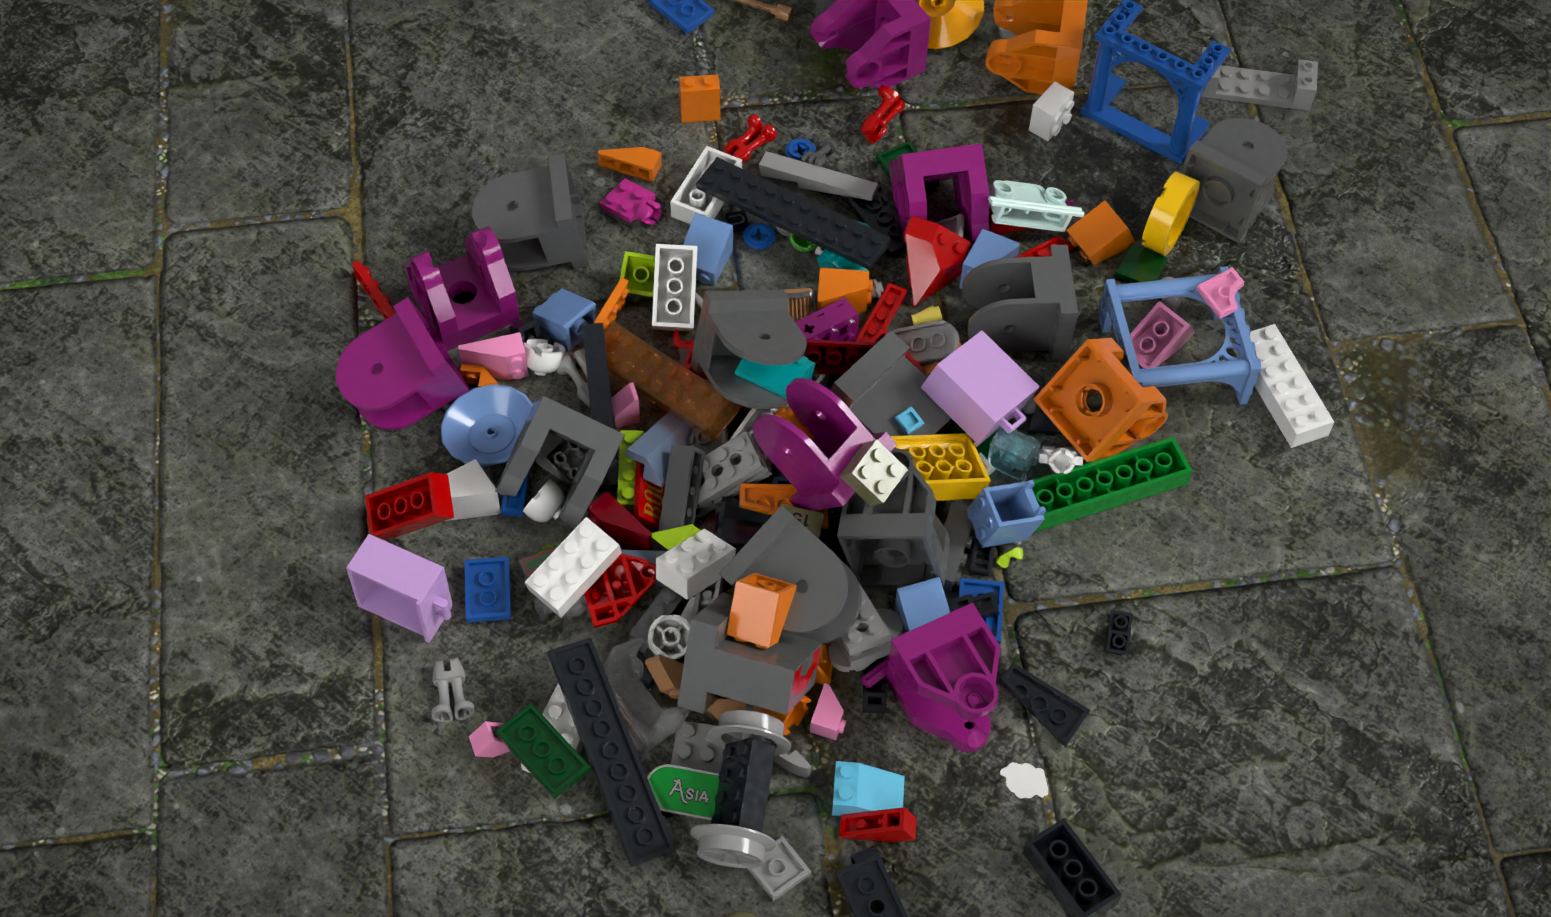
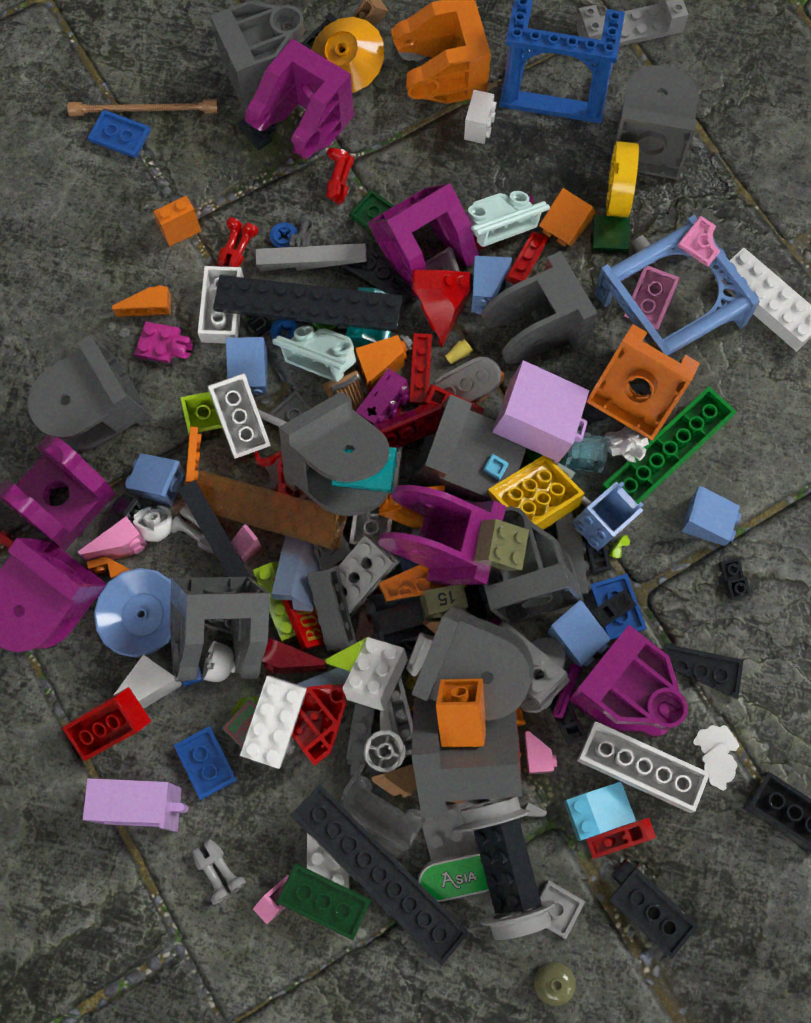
camera: 20 degrees left, 15 degrees up
(781, 261) = (318, 351): none -> light aqua brick
(817, 56) = (257, 138): none -> black hinge
(932, 766) = (643, 767): none -> white brick
(1017, 805) = (720, 766): none -> white sticker
(1119, 562) = (711, 517): none -> medium blue slope

